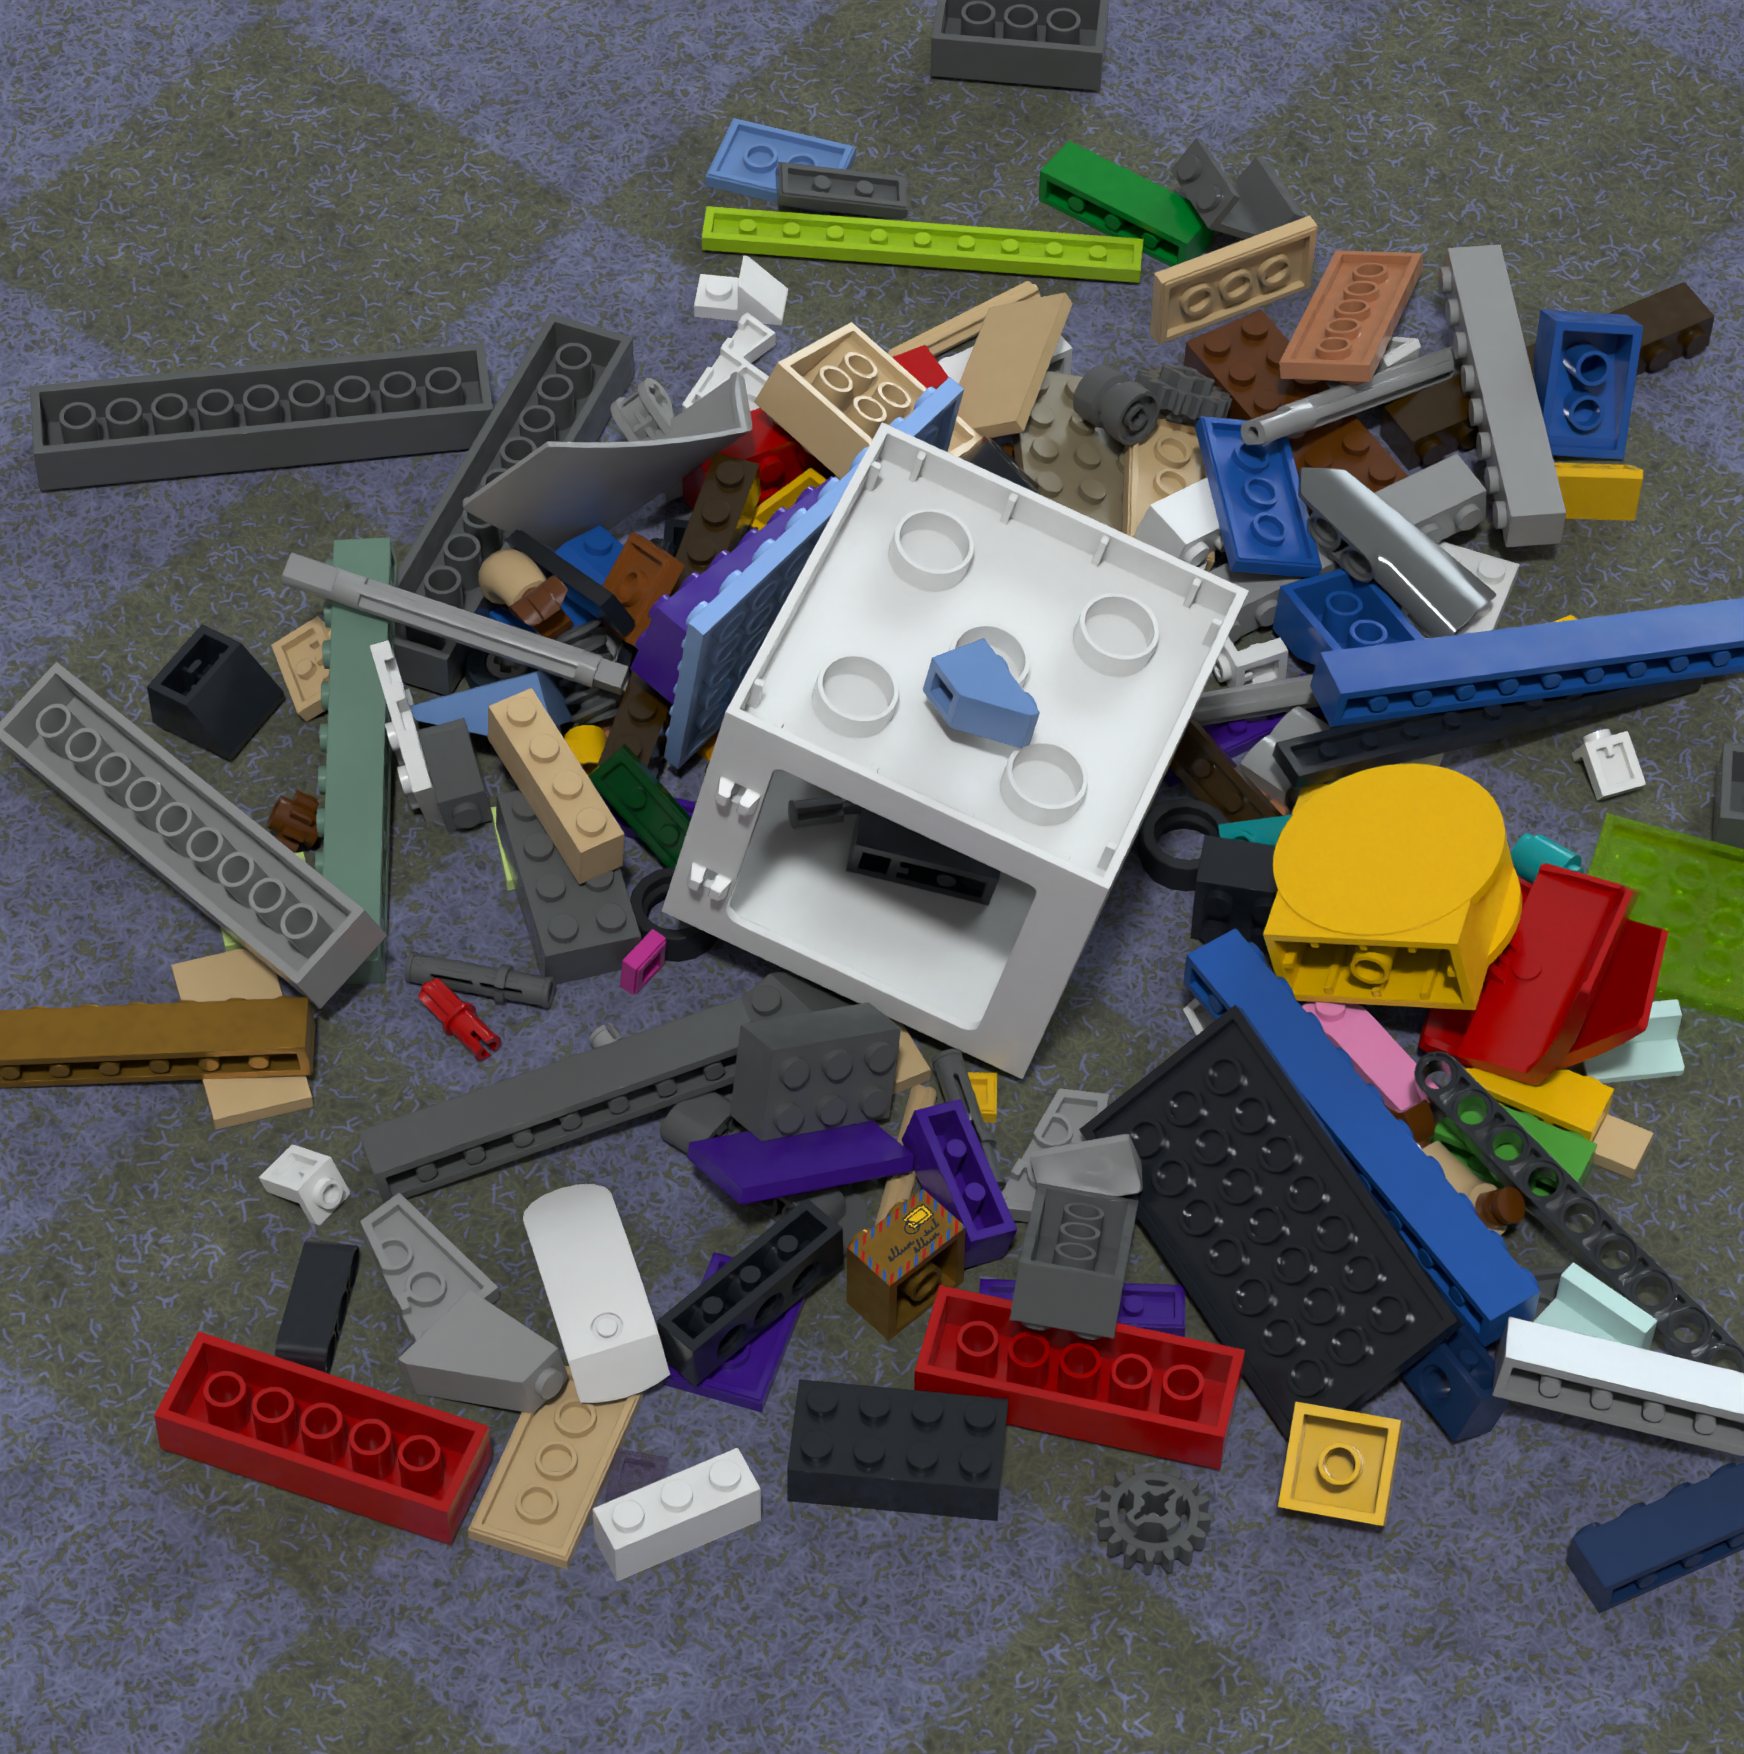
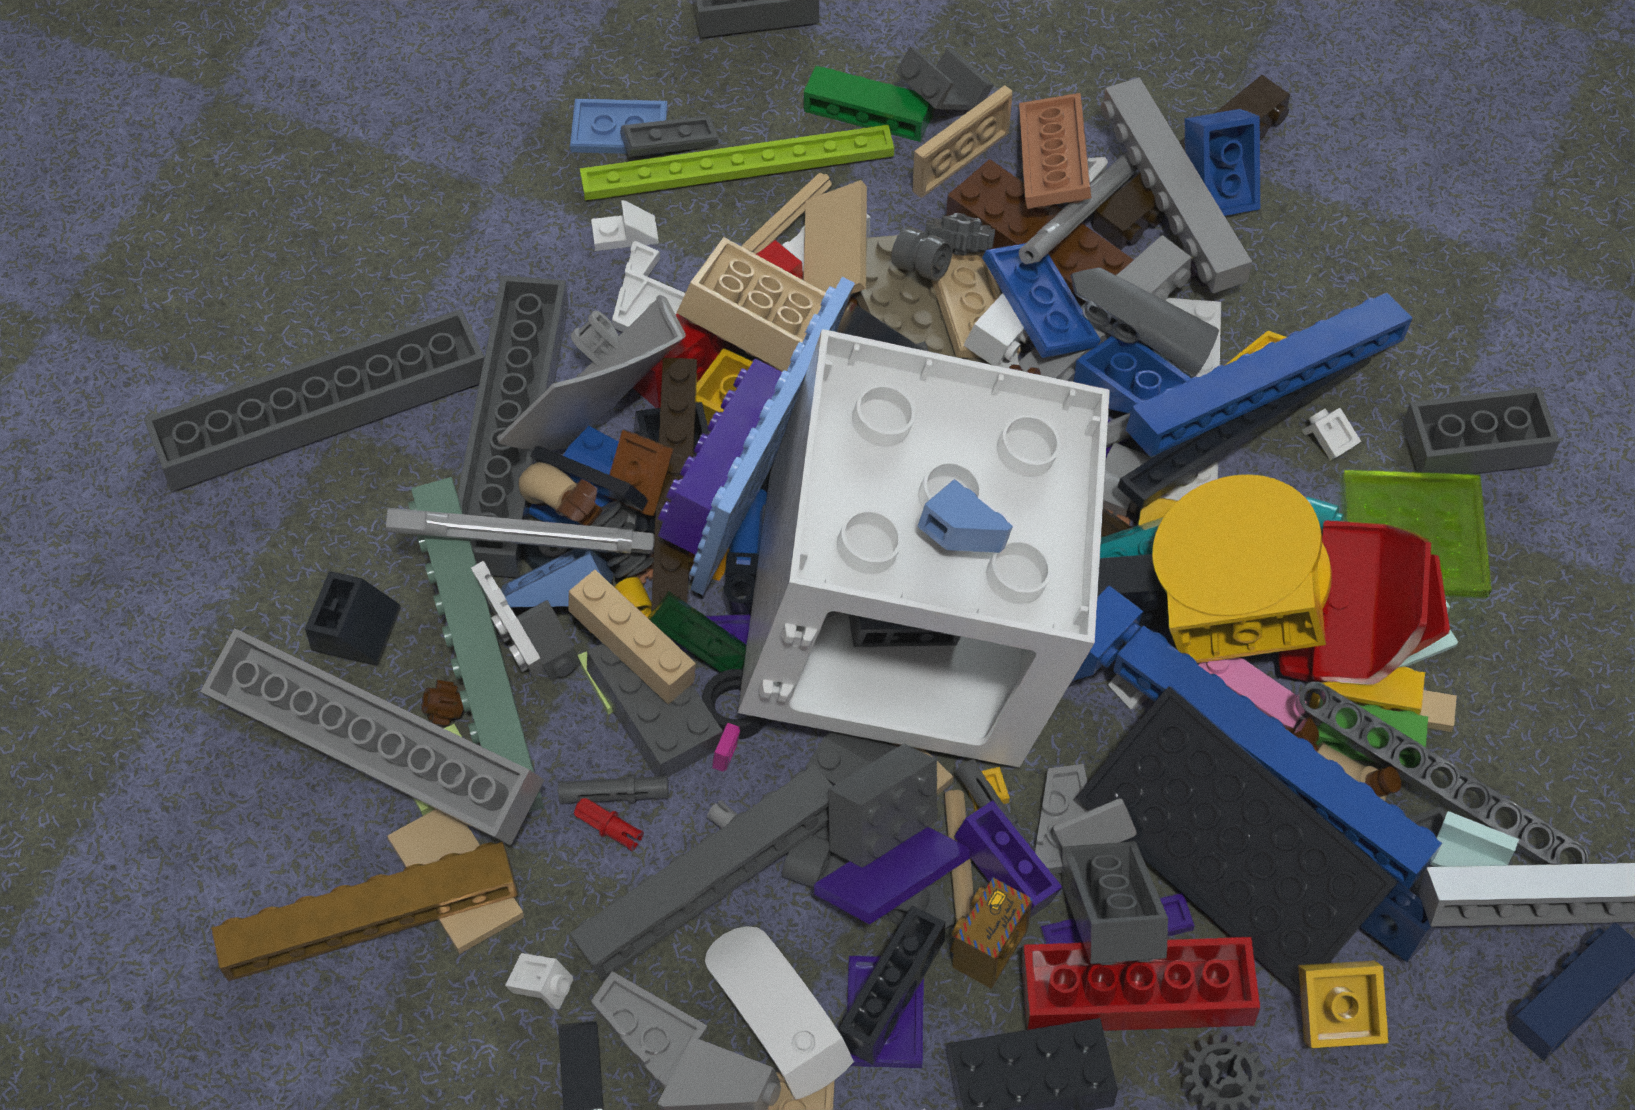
camera: 15 degrees left, 5 degrees up
(302, 666) = (410, 580): tan bracket -> none
(1167, 925) = (1115, 623): none -> blue slope
(1599, 490) = (1261, 232): yellow slope -> none

